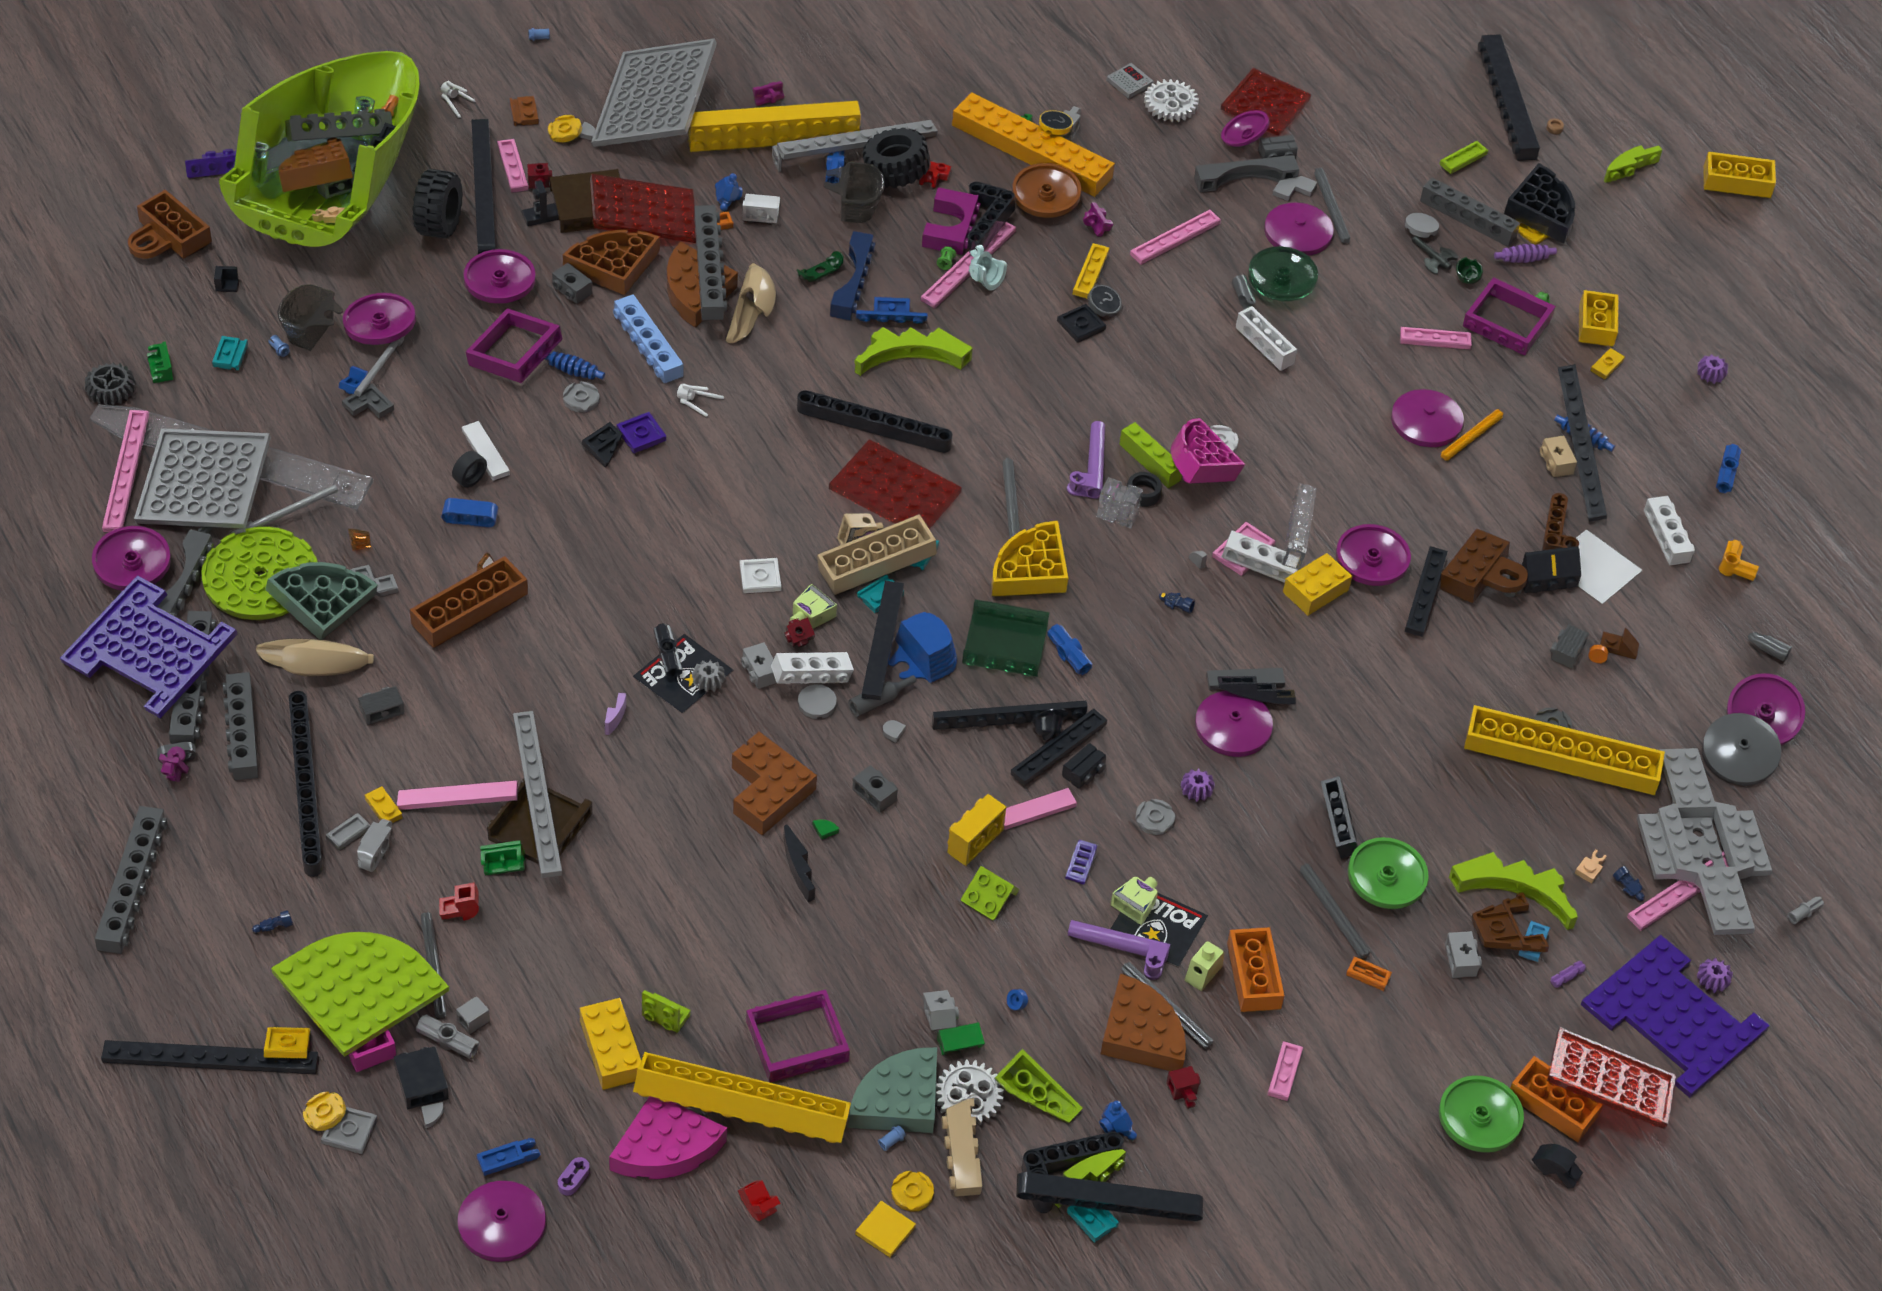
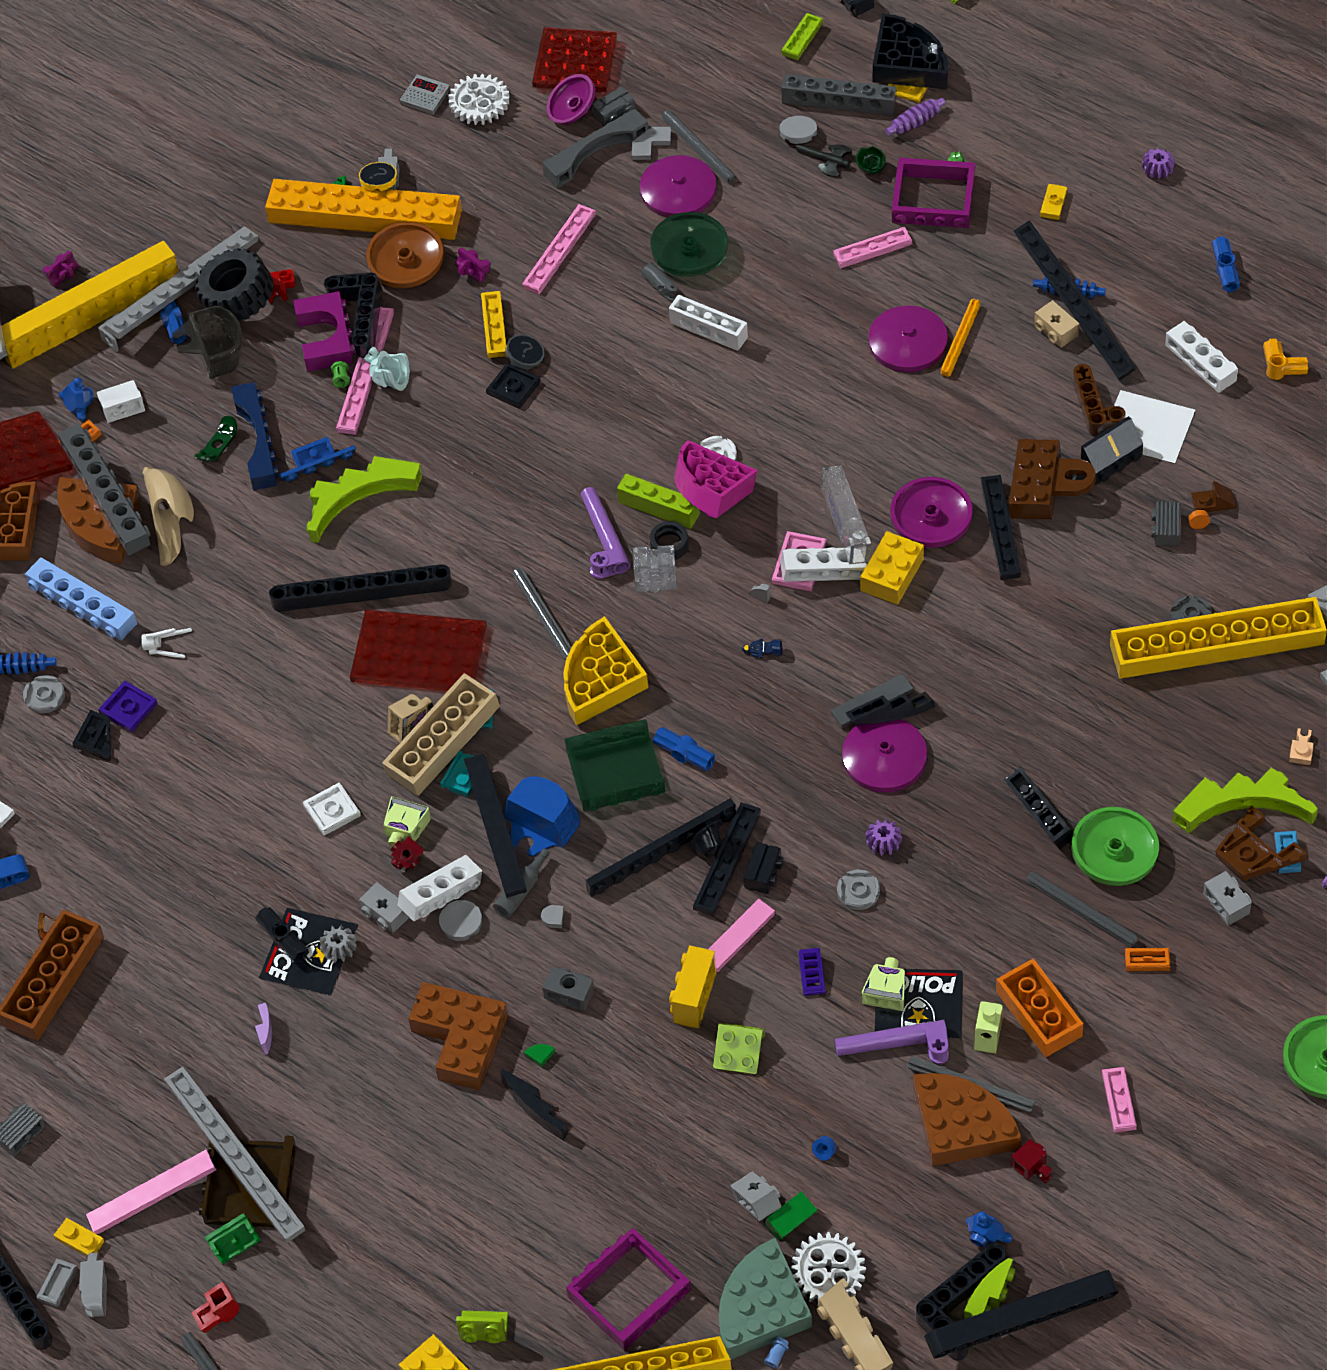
camera: 15 degrees left, 5 degrees up
(1032, 1084) = (886, 1231): lime wedge -> none
(1093, 1222) = (1016, 1345): teal plate -> none
(1598, 318) = (1022, 157): yellow brick -> none

